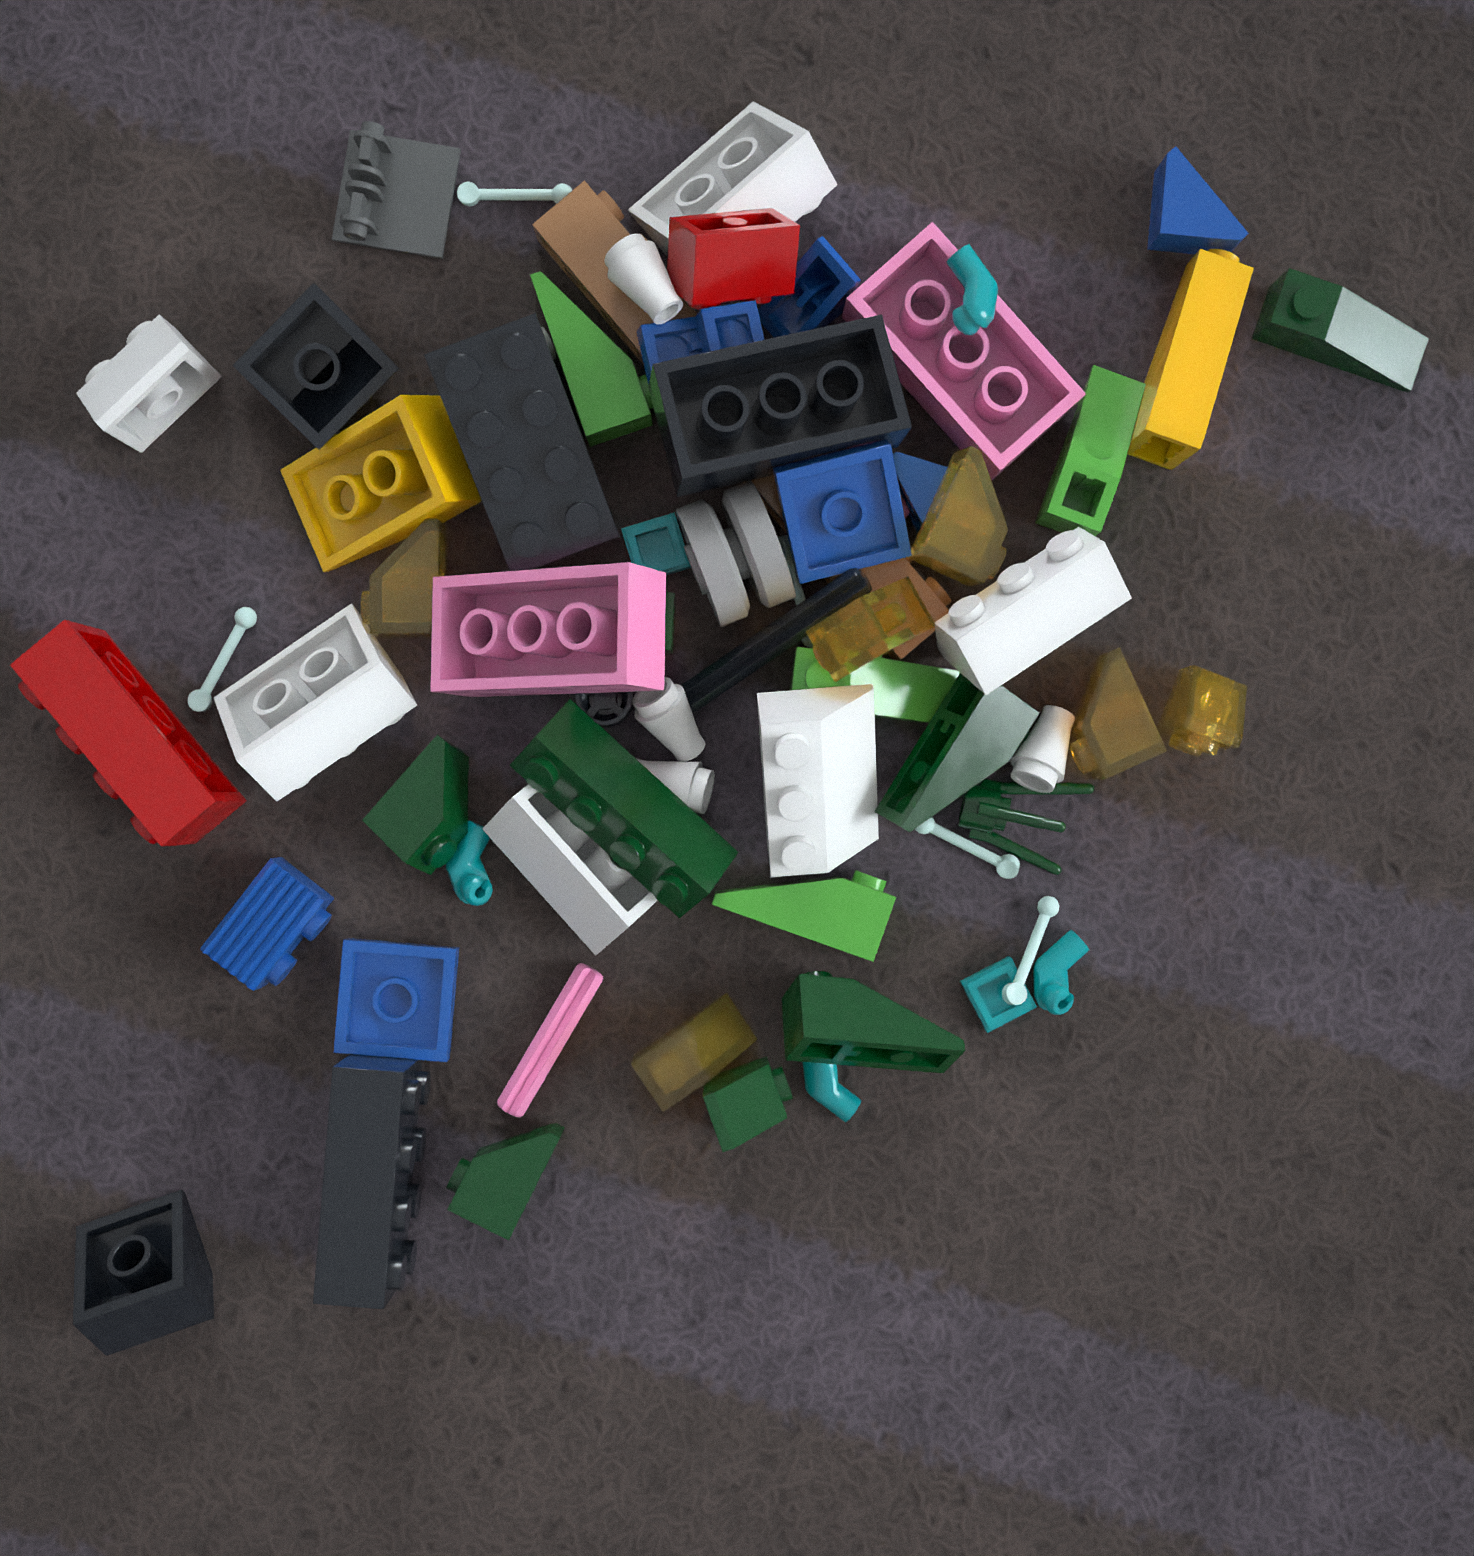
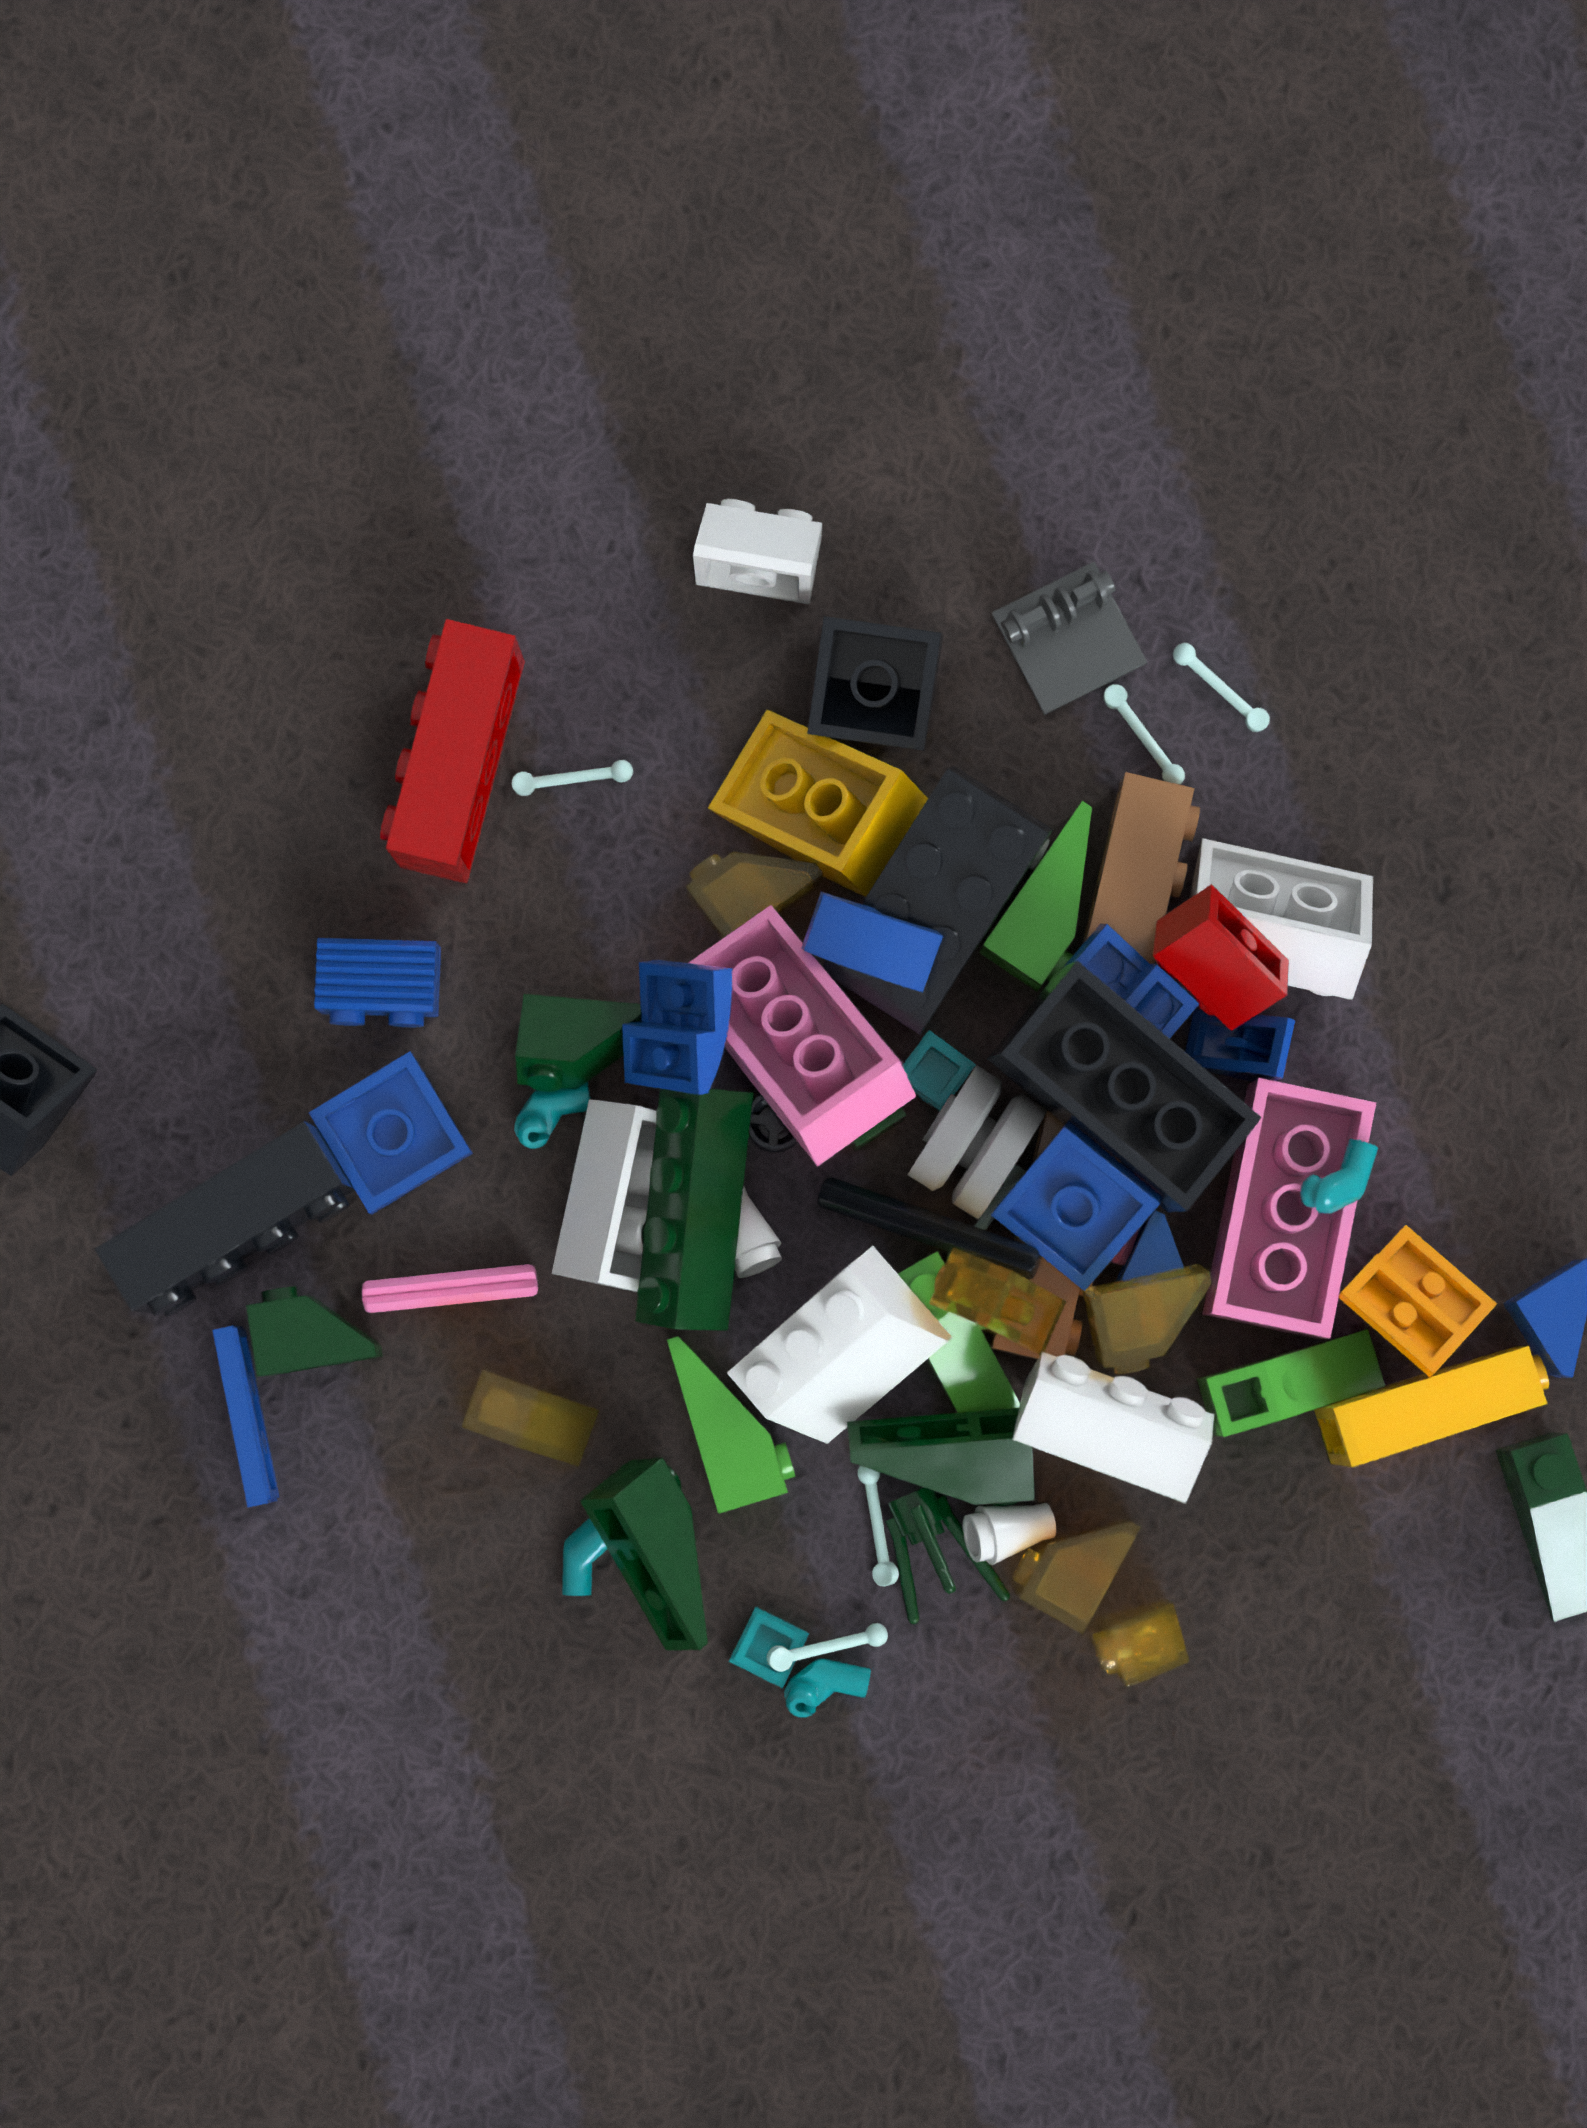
camera: 50 degrees right, 5 degrees down
(313, 703) = (591, 880): white slope -> none
(477, 716) = (680, 1026): none -> blue slope
(519, 517) = (871, 942): none -> blue slope
(534, 1268) = (246, 1415): none -> blue tile
(566, 99) = (1256, 719): none -> light aqua hinge
(641, 275) = (1147, 897): white cone -> none
(670, 719) = (797, 1190): white cone -> none
(746, 1101) = (521, 1493): dark green slope -> none
(1104, 307) = (1417, 1300): none -> light orange slope

